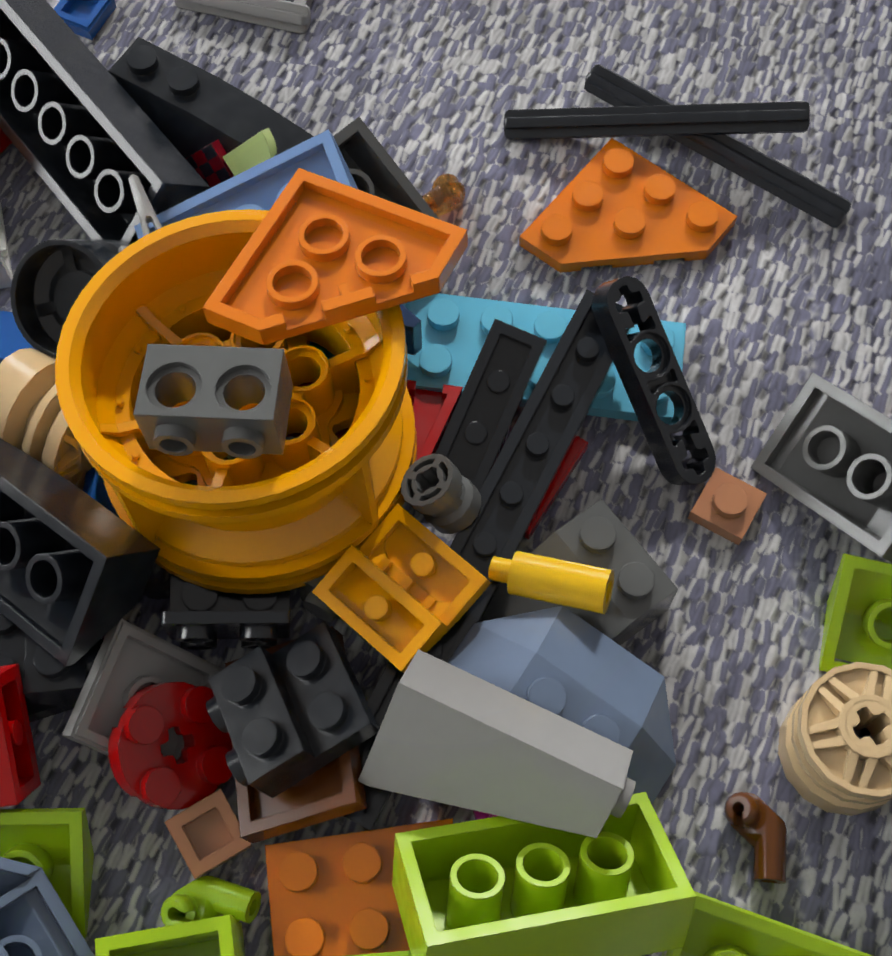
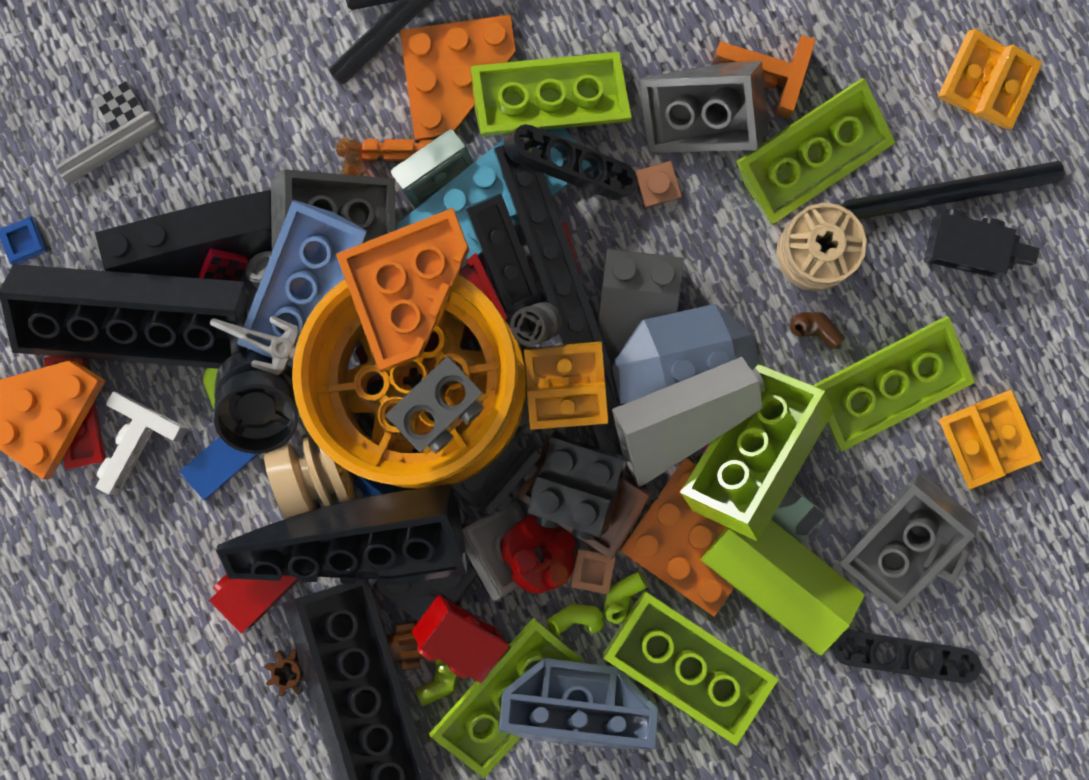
camera: 45 degrees left, 20 degrees up
(139, 866) = (577, 614): none -> lime arm
(251, 152) = (243, 242): yellowish green tile -> none
(494, 234) = (391, 150): none -> orange axle
(509, 272) = (432, 167): none -> slope
(554, 581) = (628, 312): yellow cylinder -> none
(709, 312) = (550, 93): none -> lime slope

